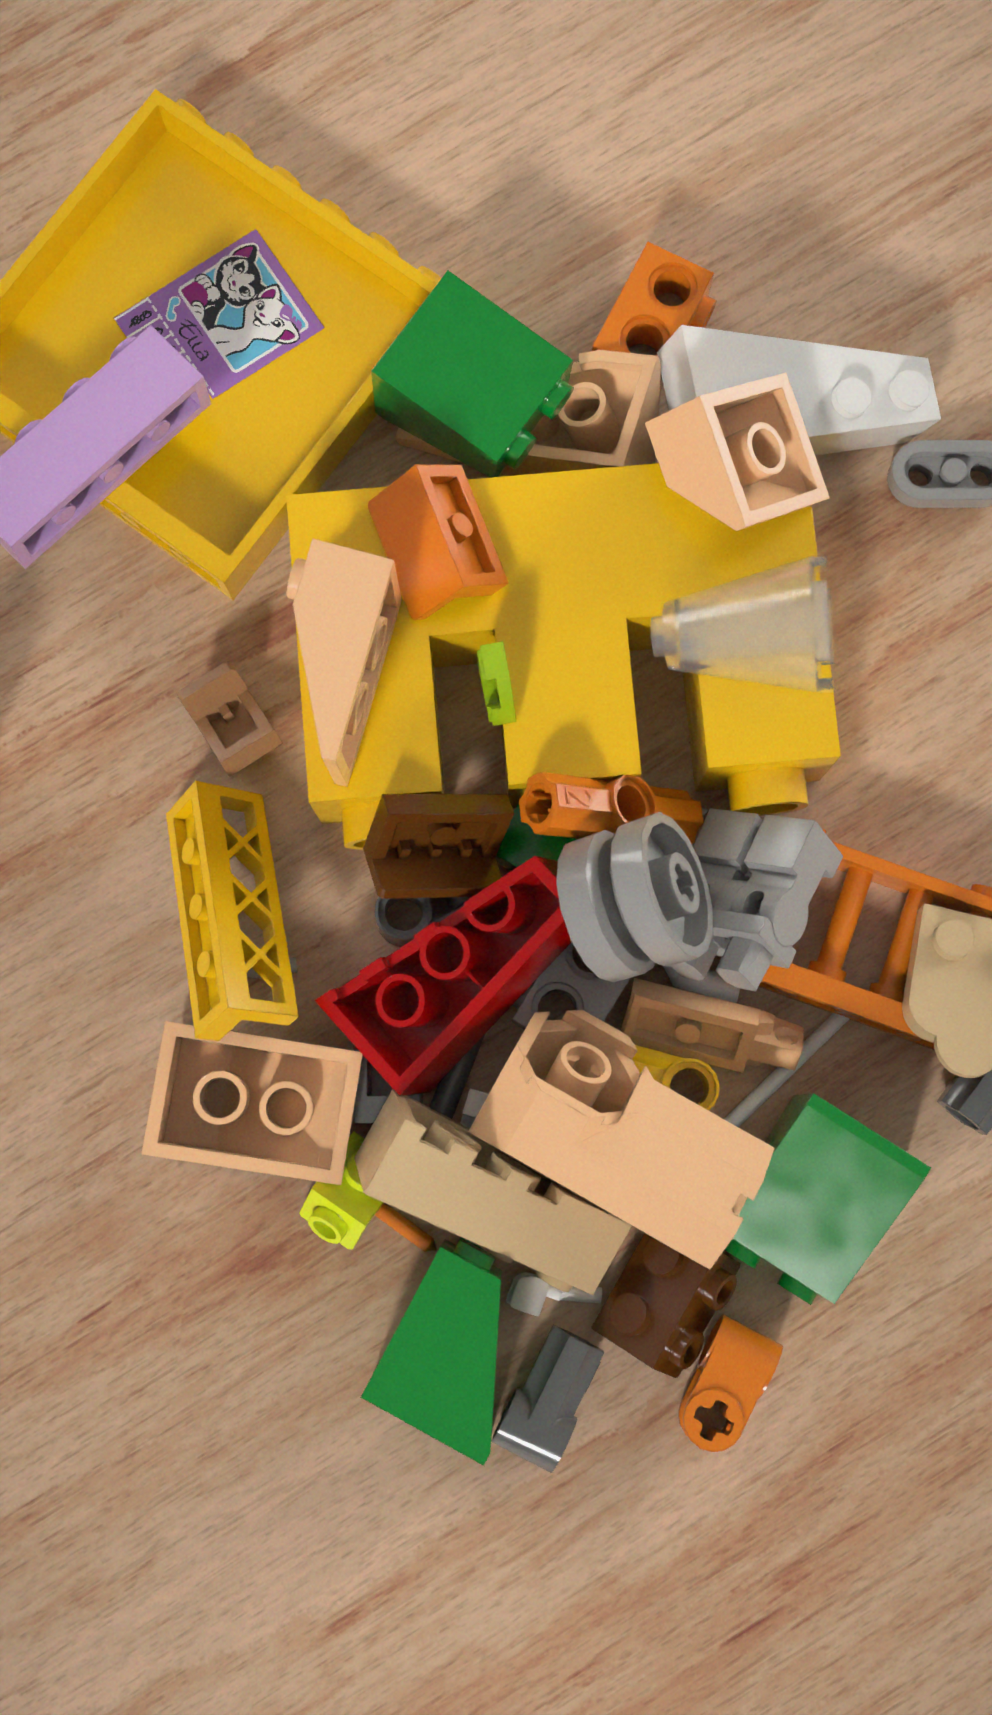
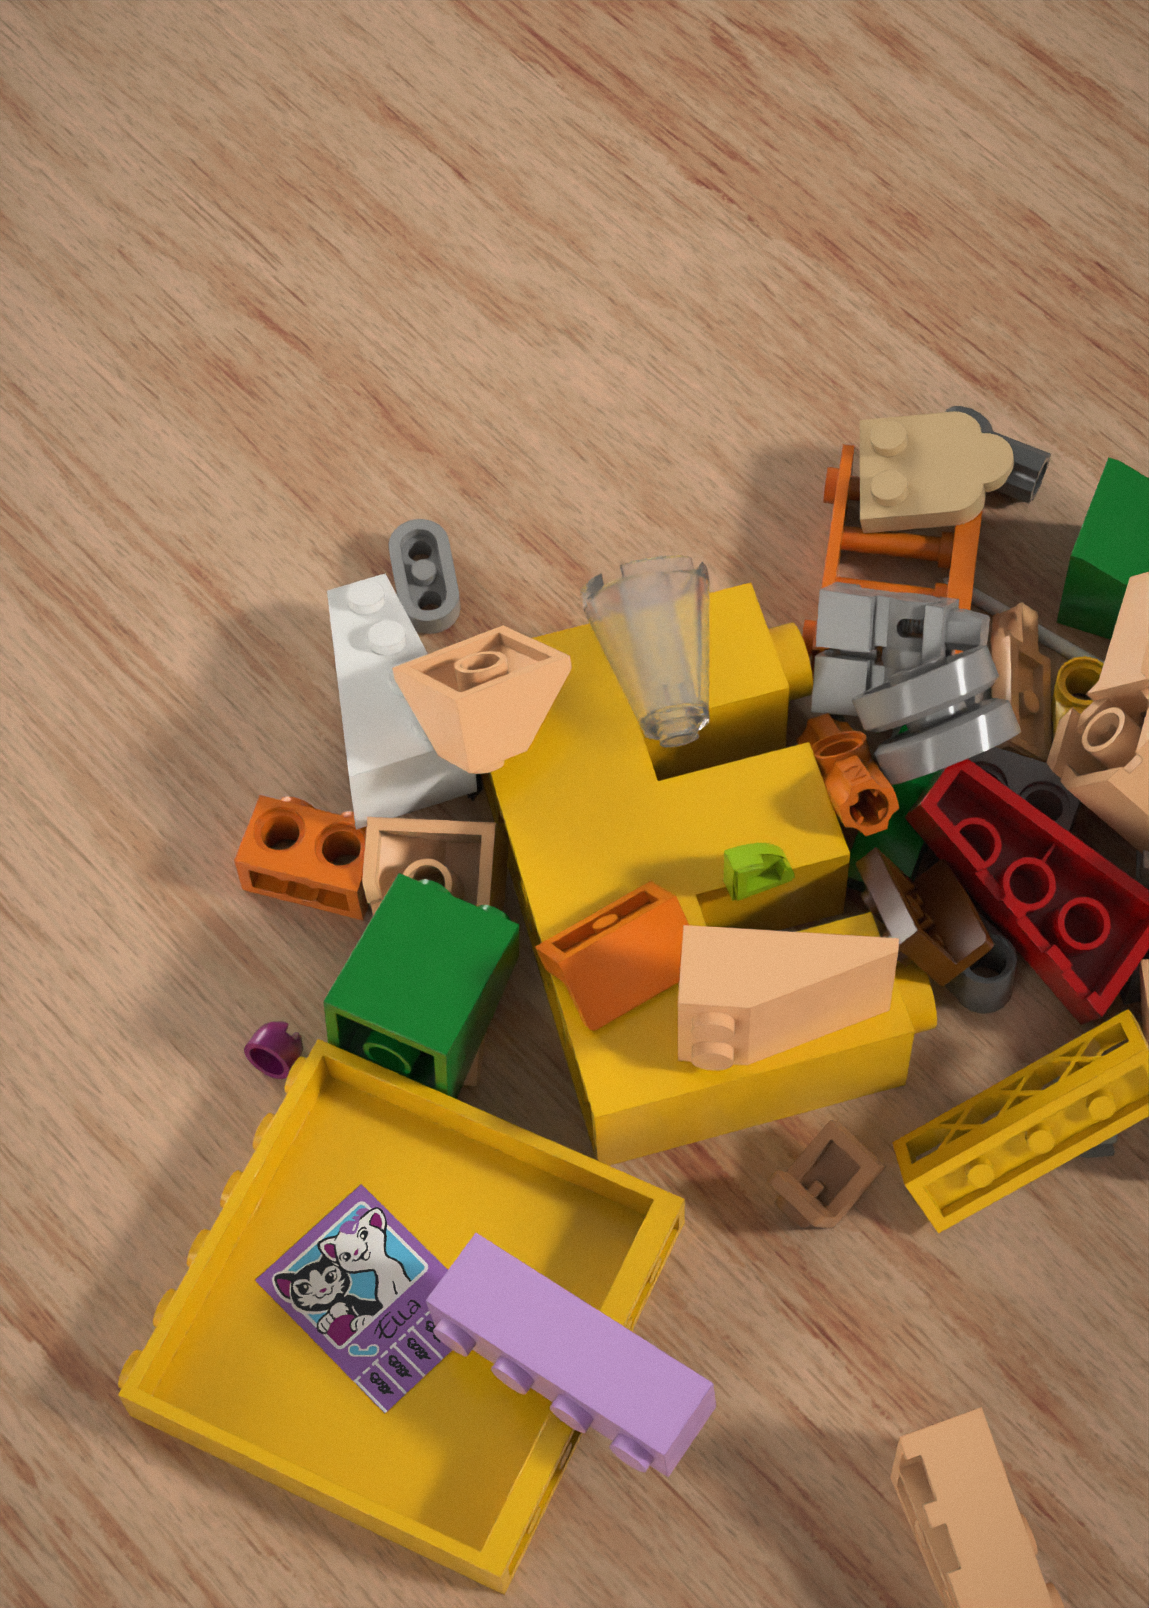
camera: 100 degrees left, 20 degrees down
(468, 263) = (273, 1049): none -> magenta hinge

